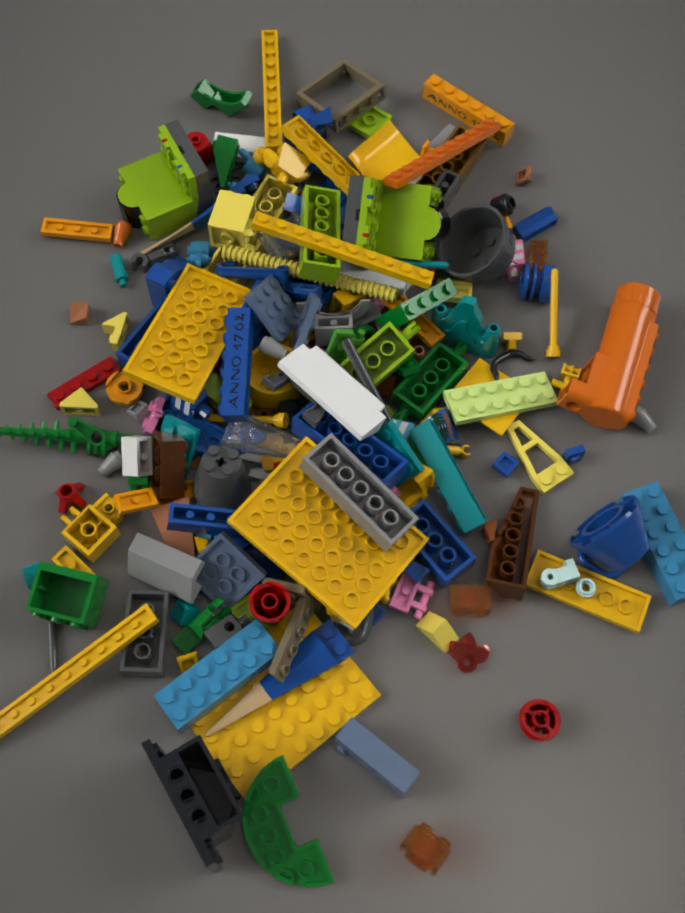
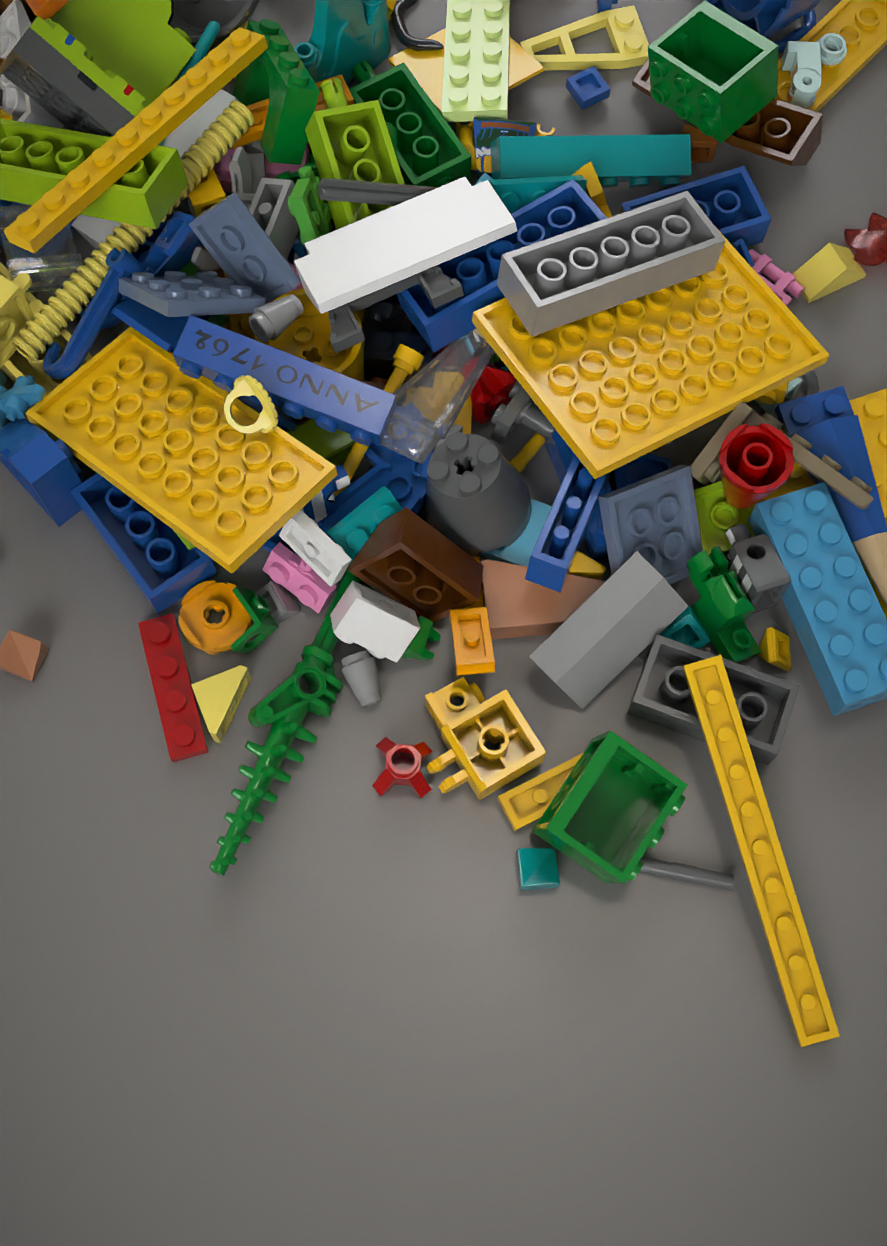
camera: 70 degrees left, 5 degrees up
(117, 328) = (86, 592): light yellow slope -> none
(127, 403) = (259, 612): none -> green bracket
(155, 417) = (315, 548): none -> white plate
(220, 346) = (247, 387): none -> light yellow piece
(469, 600) = (800, 206): clear orange brick -> none
(524, 518) = (713, 71): none -> green container

